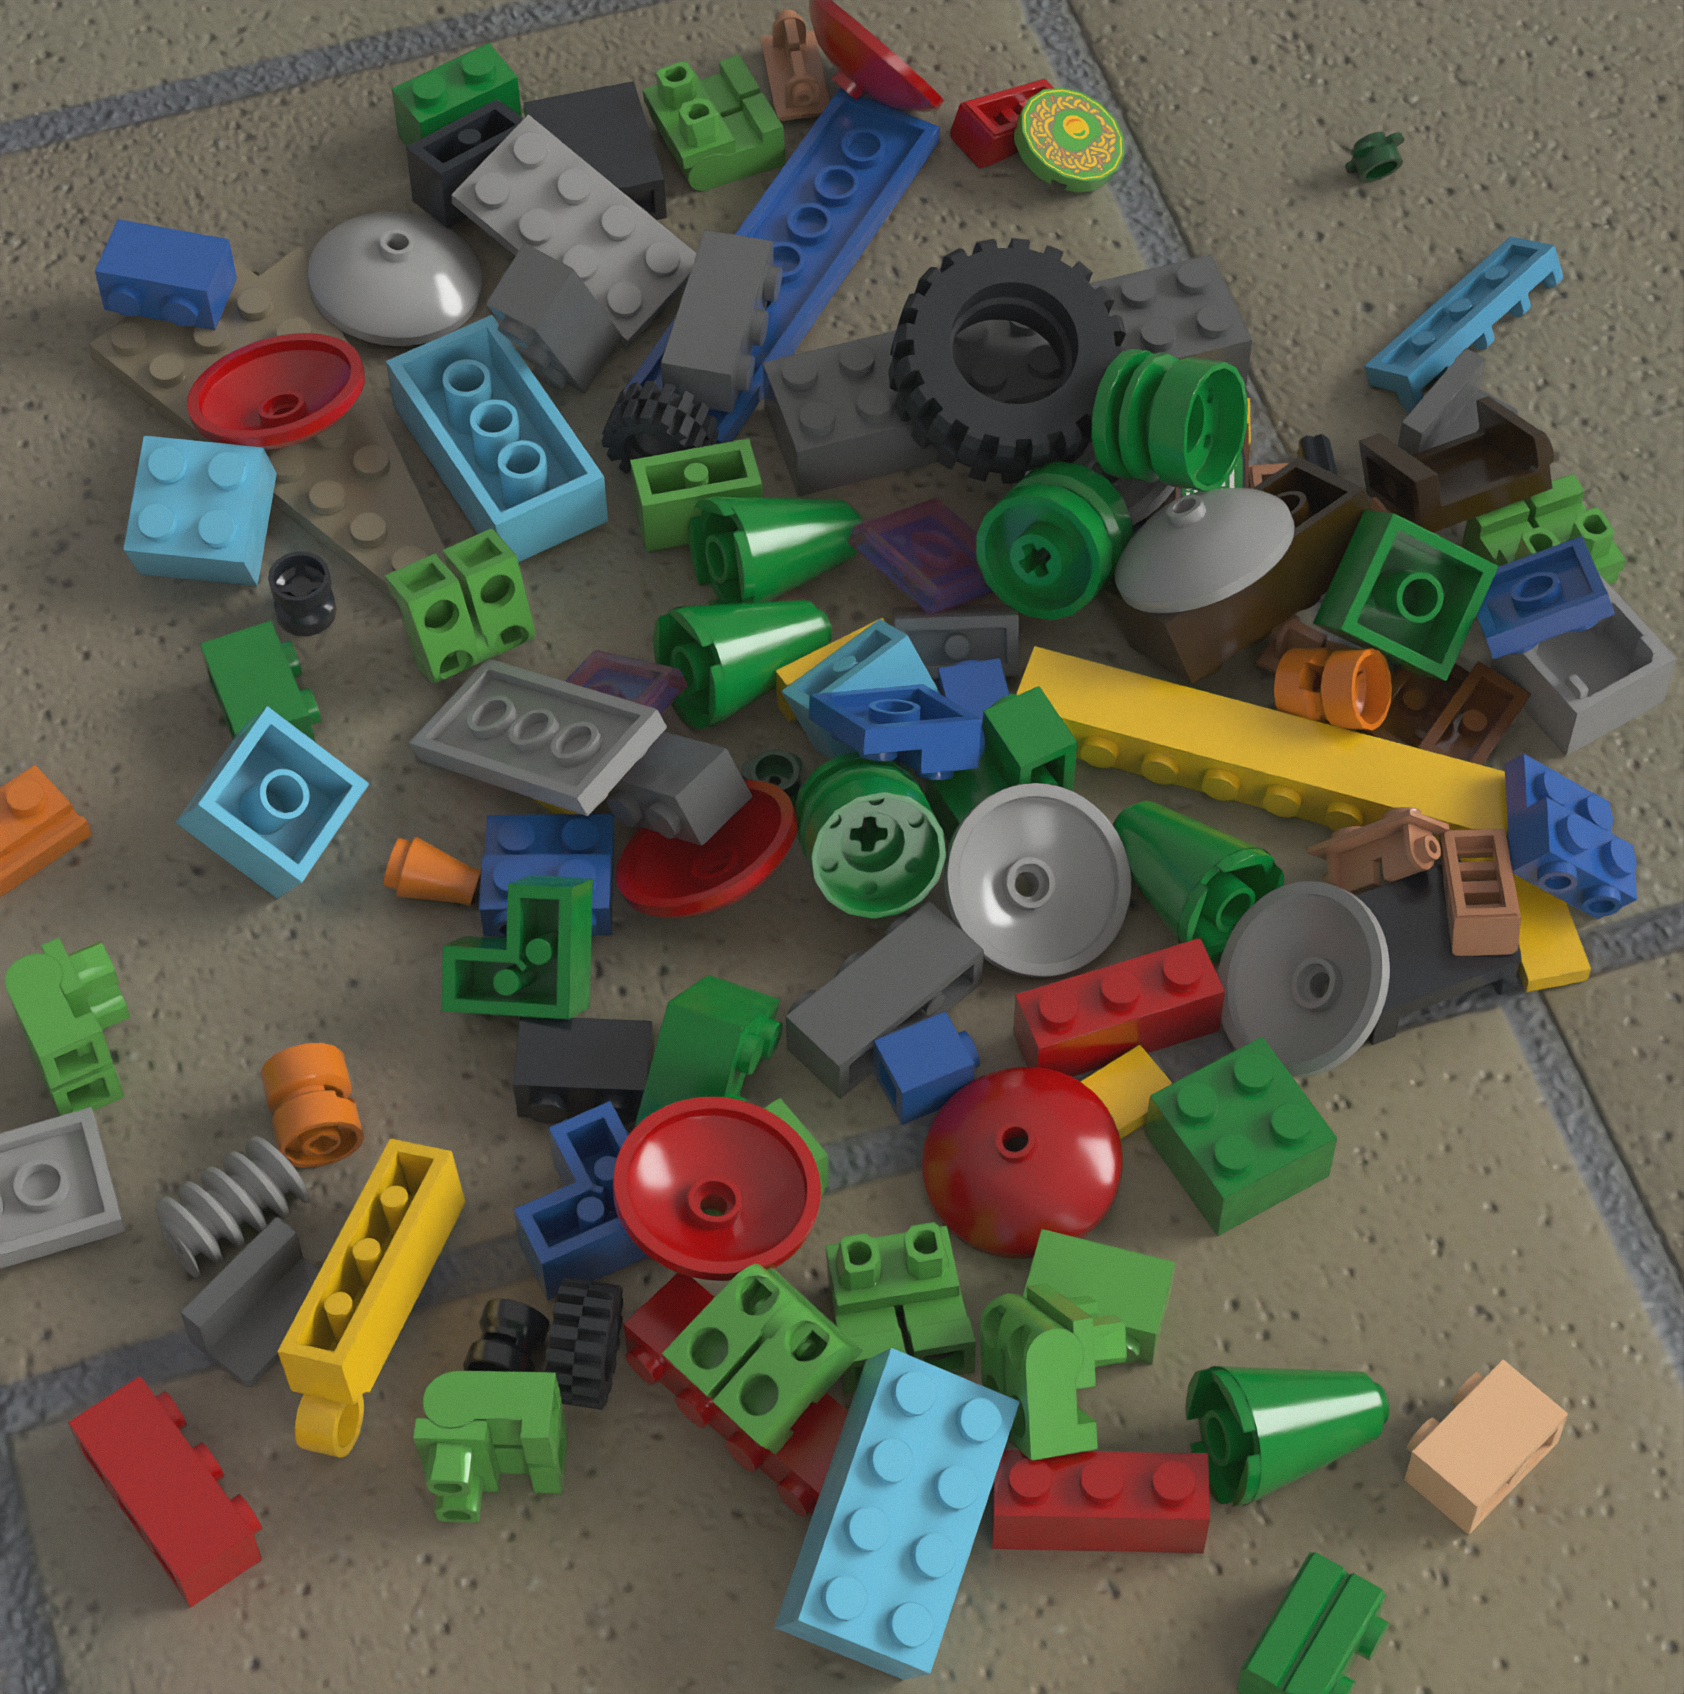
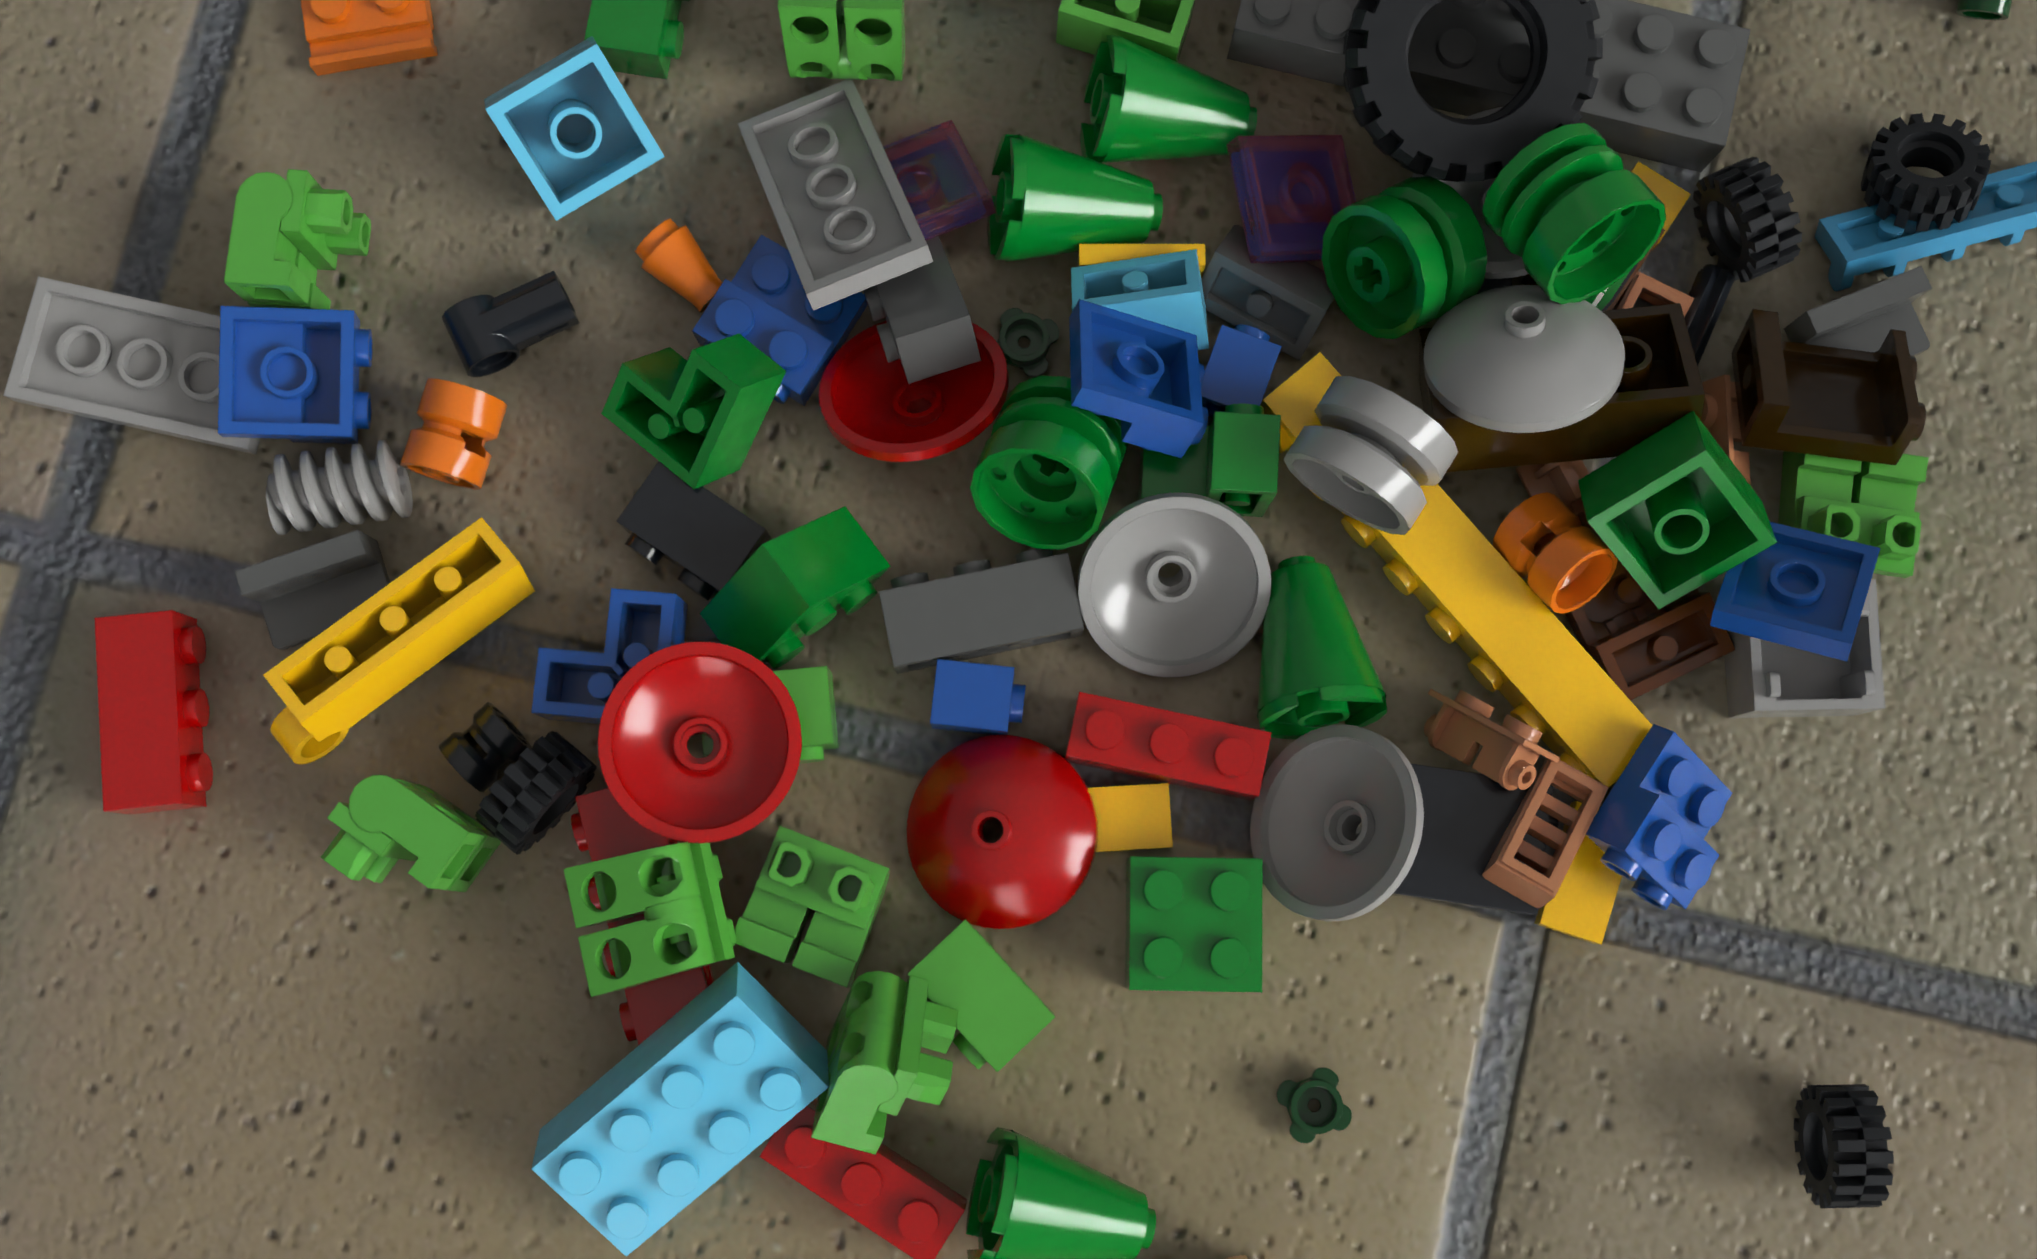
camera: 30 degrees right, 25 degrees up
(132, 1128) = (293, 374): none -> blue plate
(298, 1003) = (494, 330): none -> black piece
(1133, 674) = (1371, 454): none -> light grey wheel
(1307, 385) = (1747, 219): none -> black tyre
(1419, 288) = (1928, 146): none -> black tyre
(1452, 1212) = (1329, 1116): none -> dark green plate

